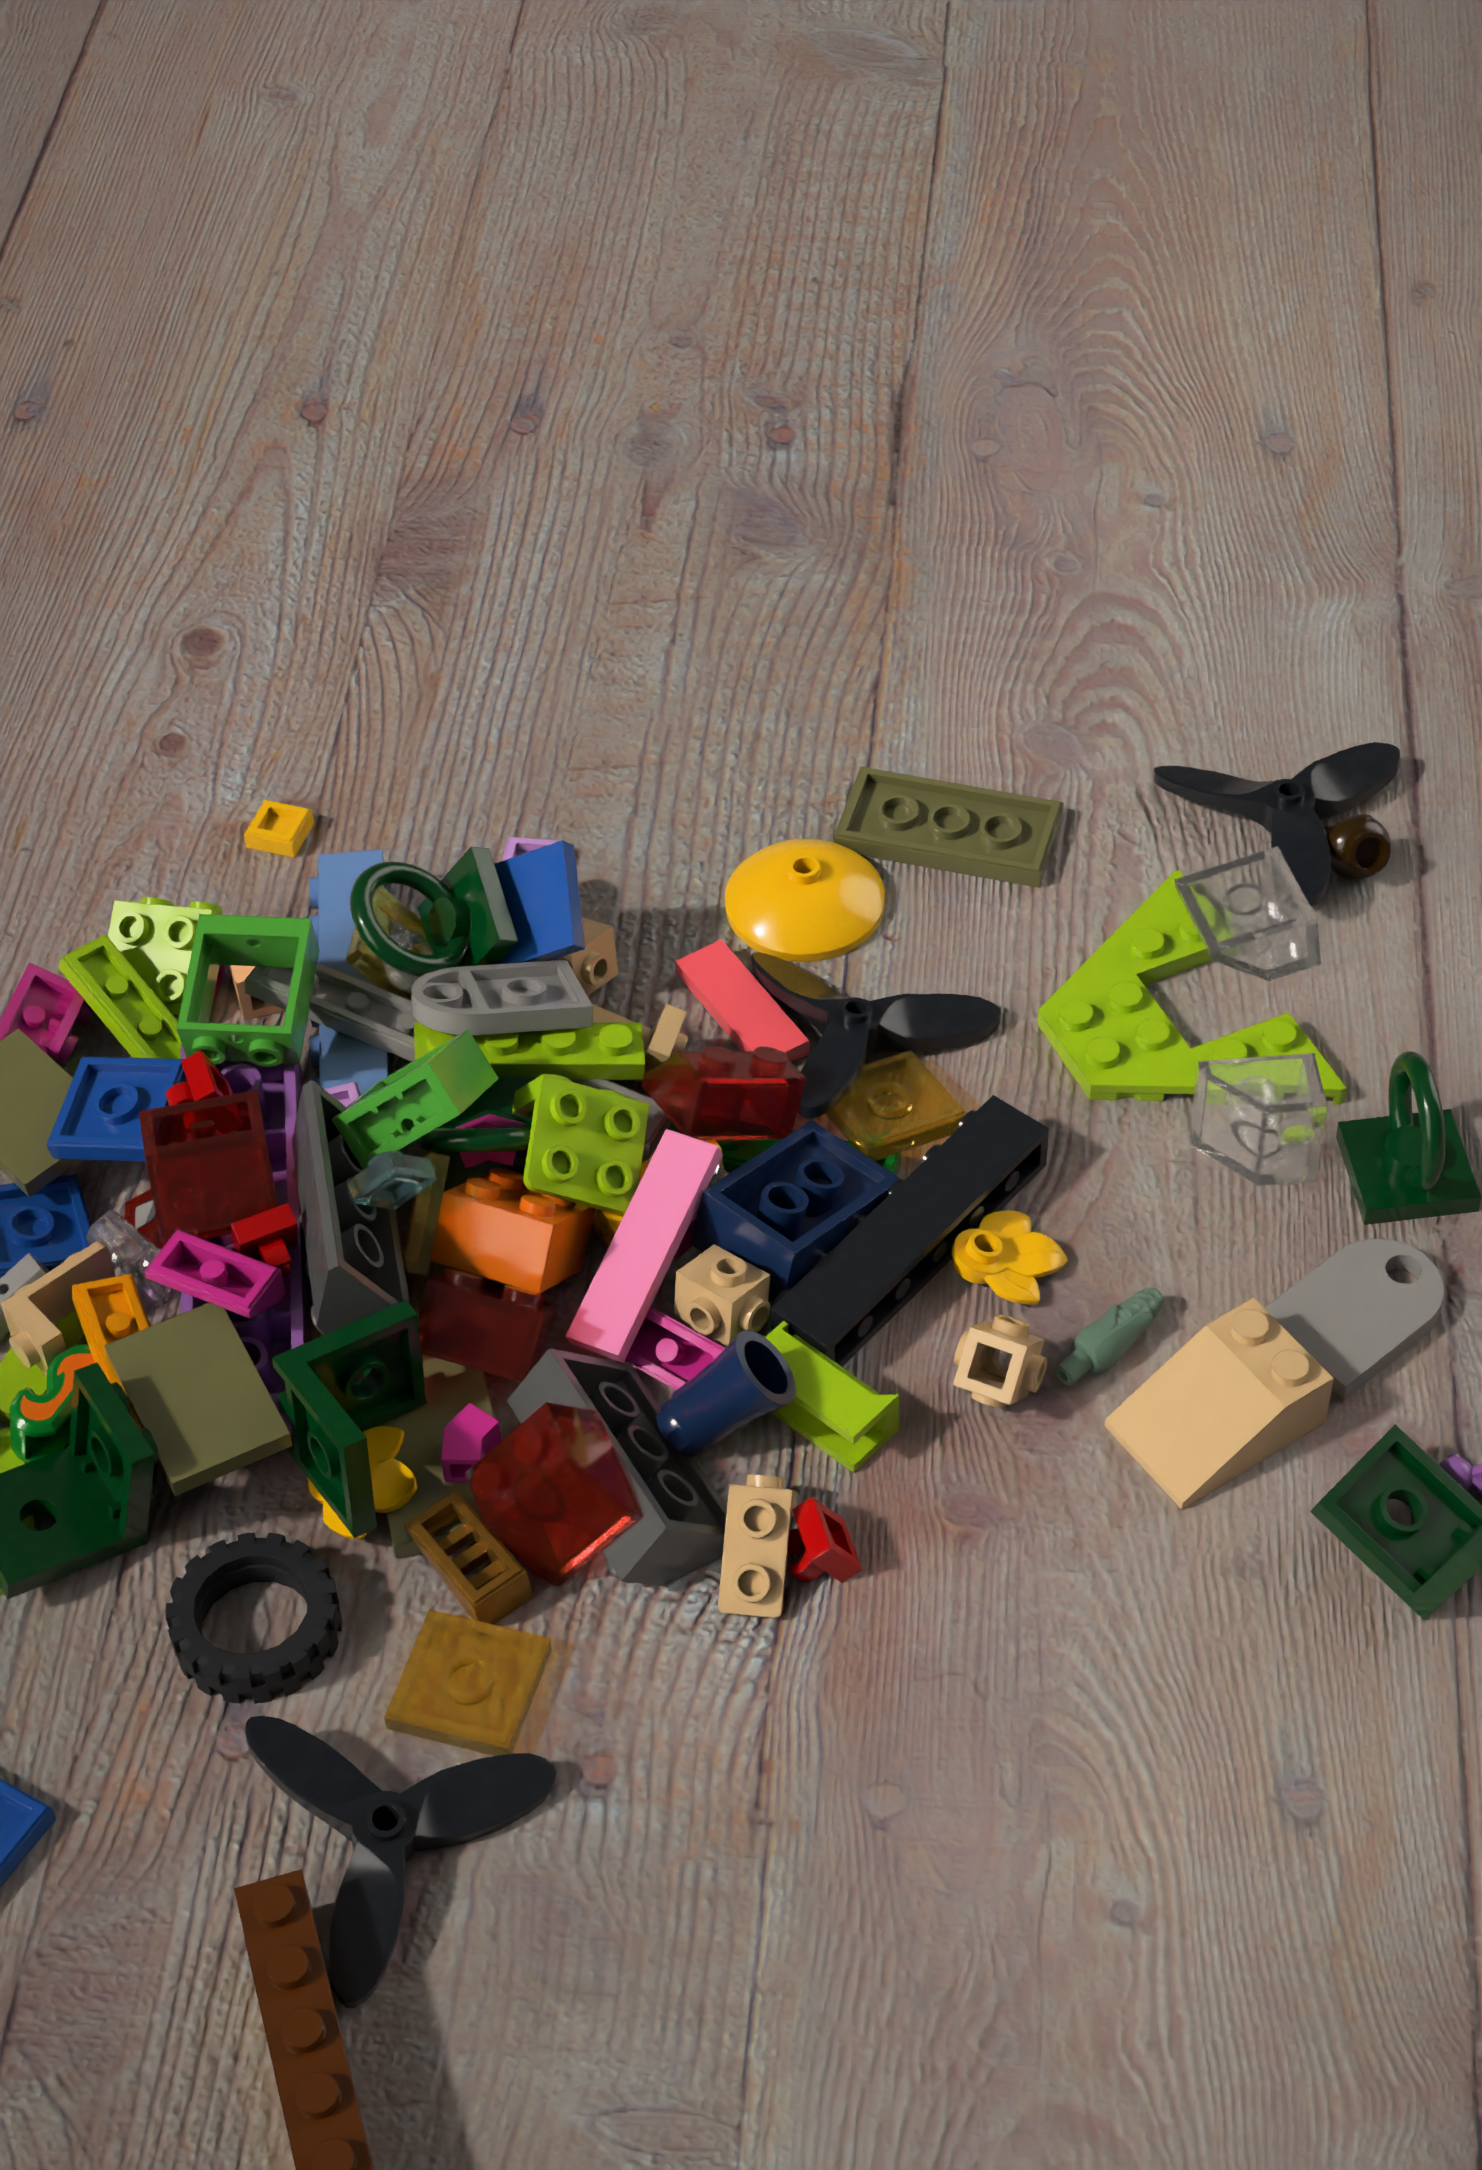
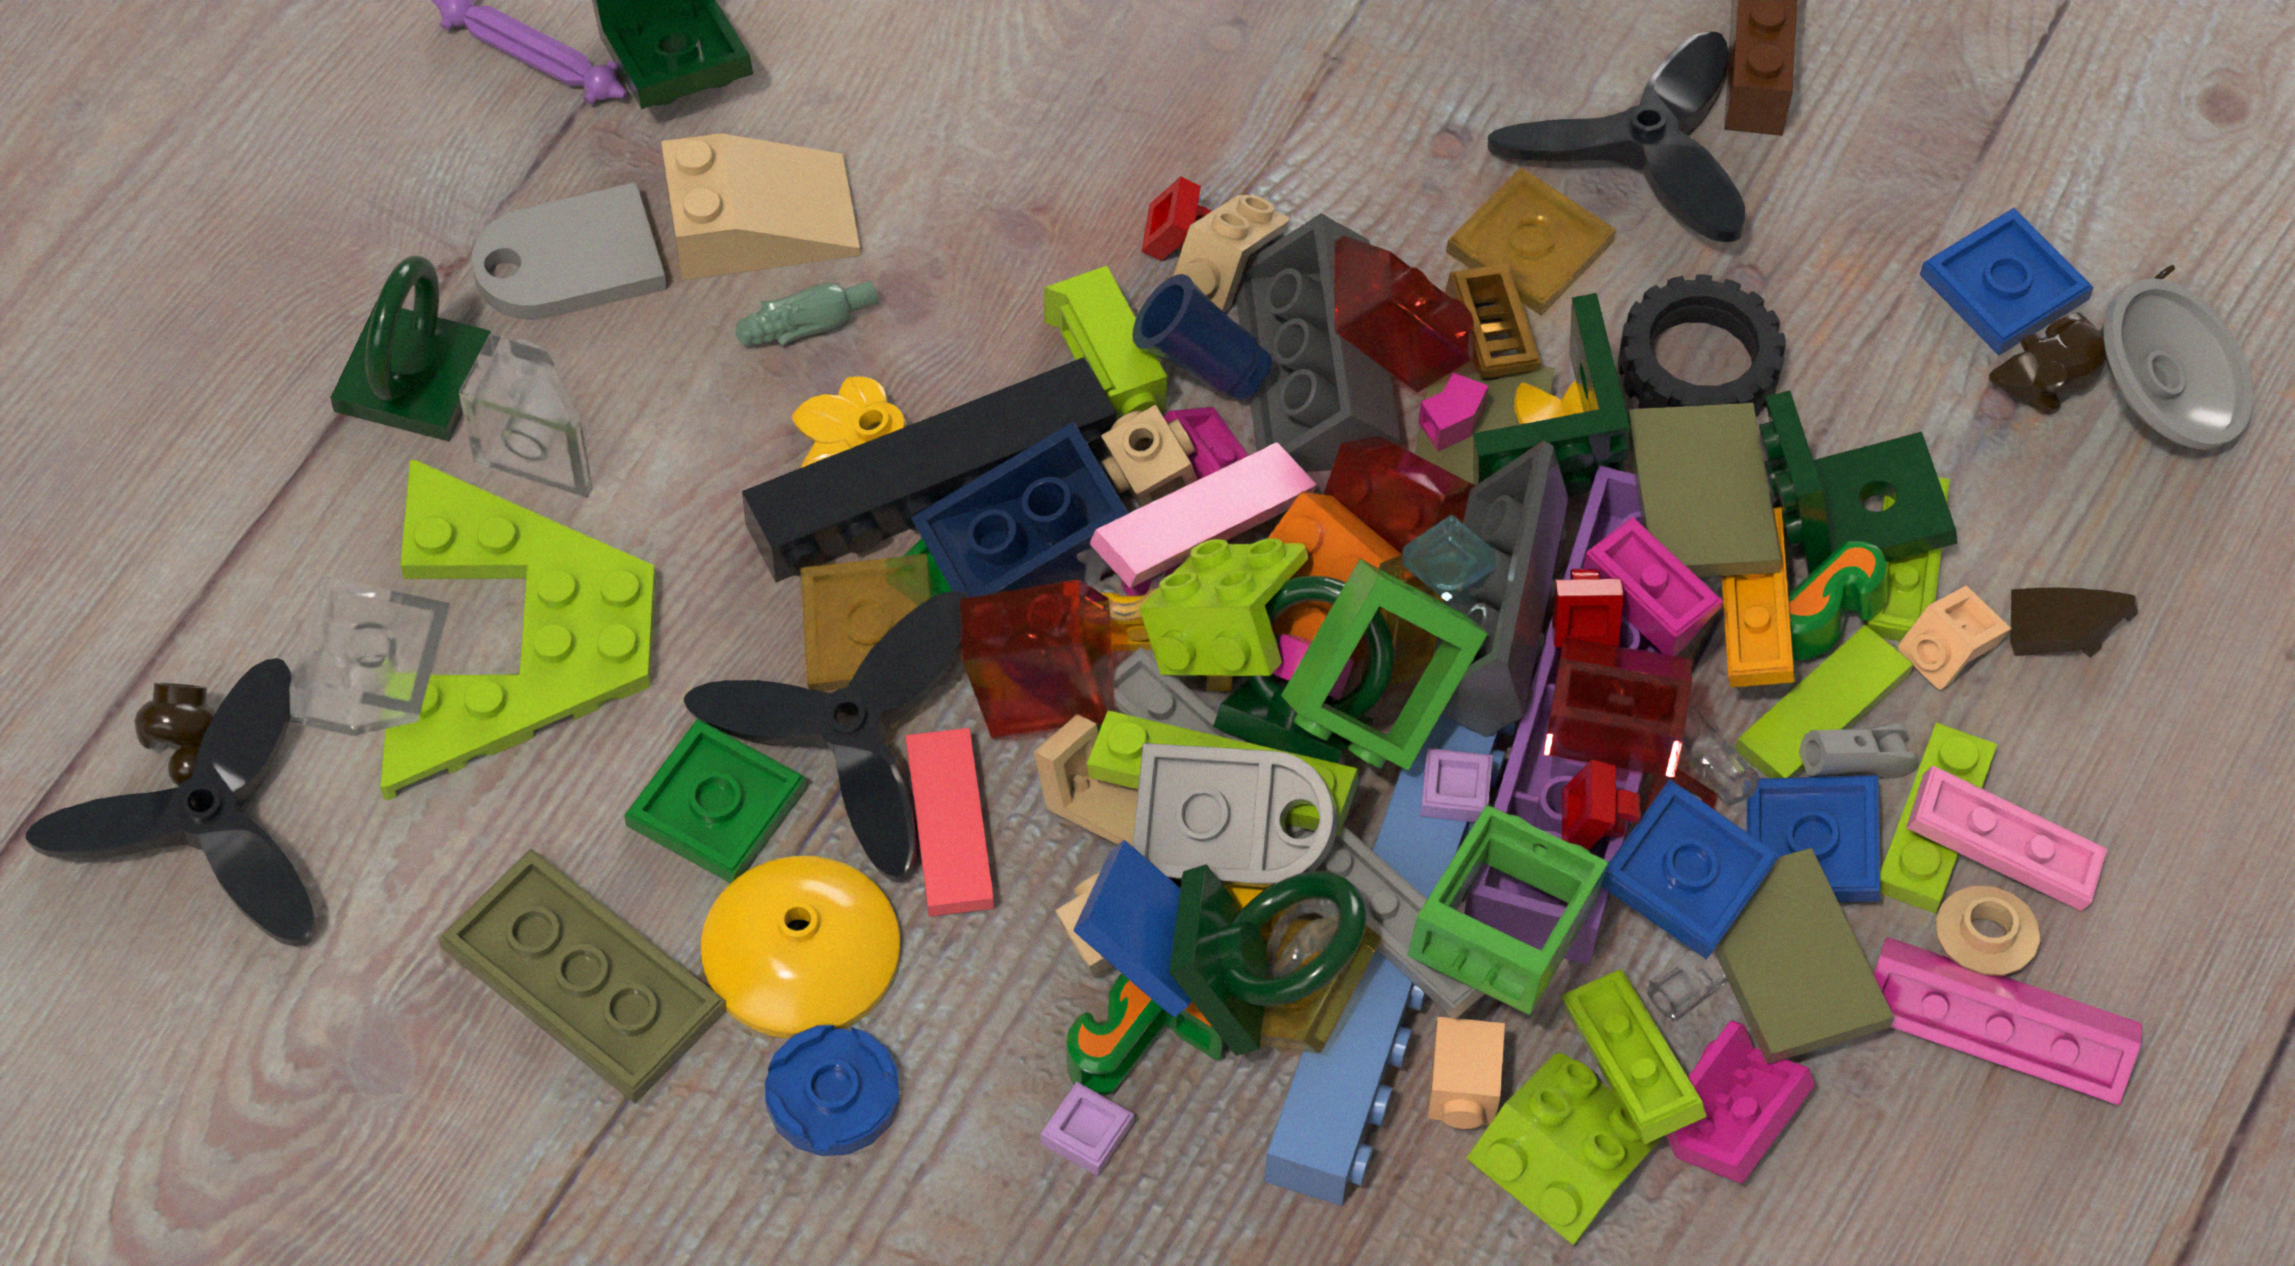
camera: 160 degrees left, 10 degrees up
(47, 1300) = (1836, 702): tan bracket -> none
(725, 823) = (832, 1090): none -> blue tile
(928, 954) = (715, 801): none -> green tile
(981, 1368) = (931, 298): tan brick -> none

